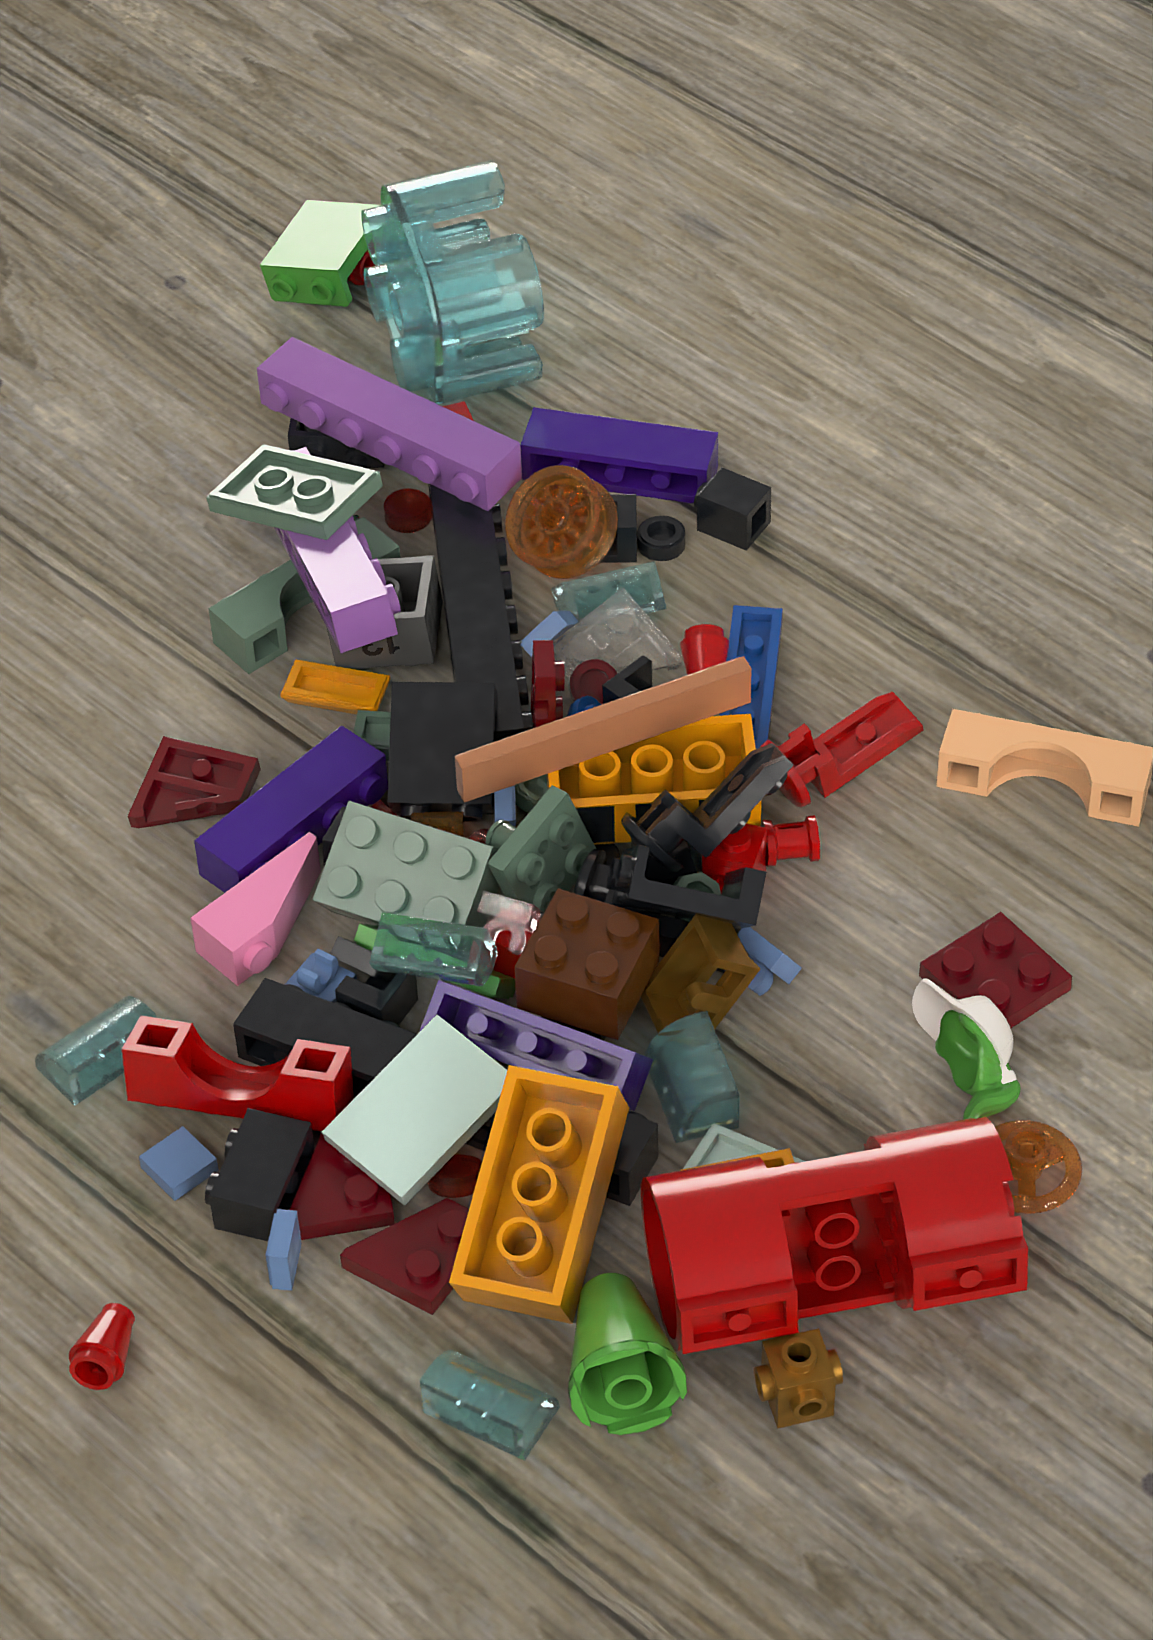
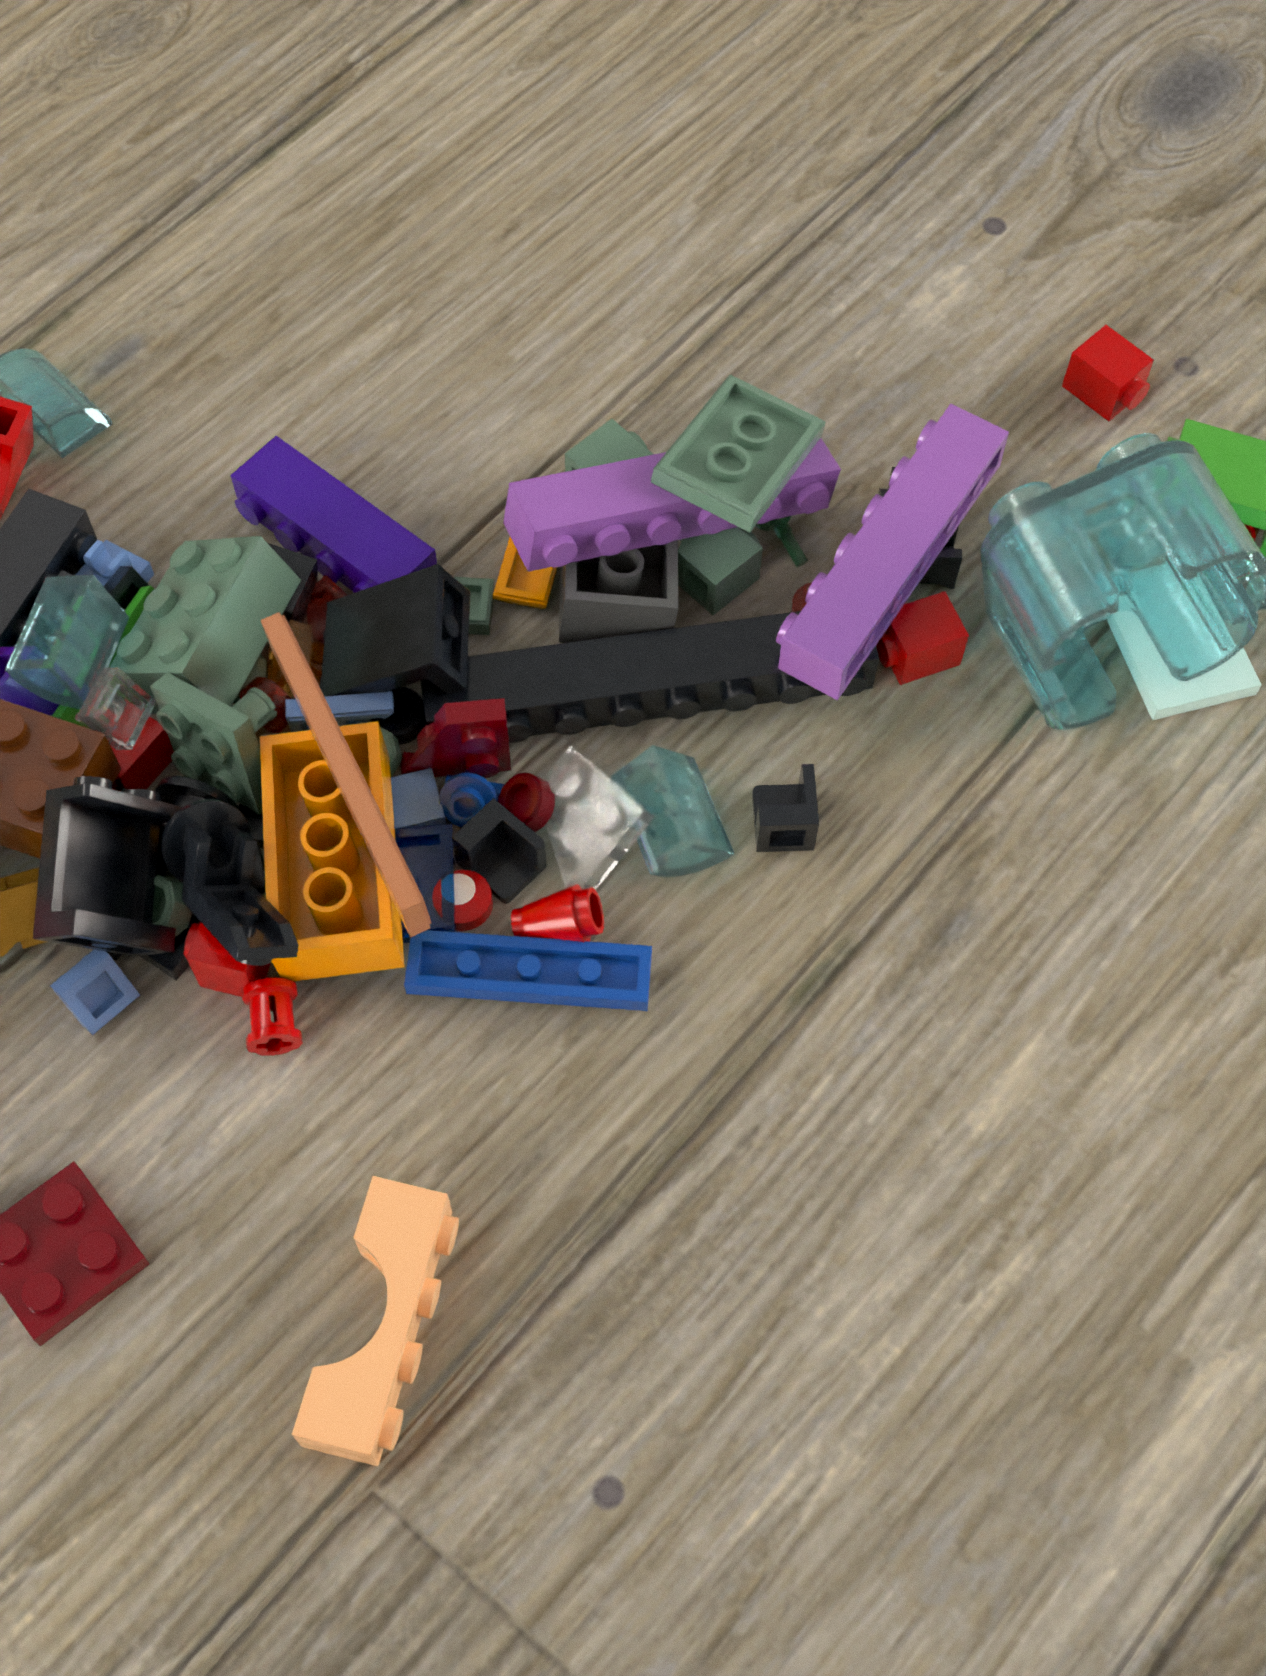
camera: 85 degrees right, 15 degrees up
(190, 315) = (1108, 373): none -> red brick
(192, 783) = (390, 442): dark red wing -> none
(253, 919) = (190, 503): bright pink slope -> none
(549, 629) = (591, 747): medium blue tile -> none
(582, 536) = (766, 746): clear orange wheel -> none
(622, 453) = (915, 818): dark purple brick -> none
(661, 538) = (789, 873): black tile -> none
(733, 508) = (829, 944): black brick -> none
(846, 747) = (371, 1016): red piece -> none

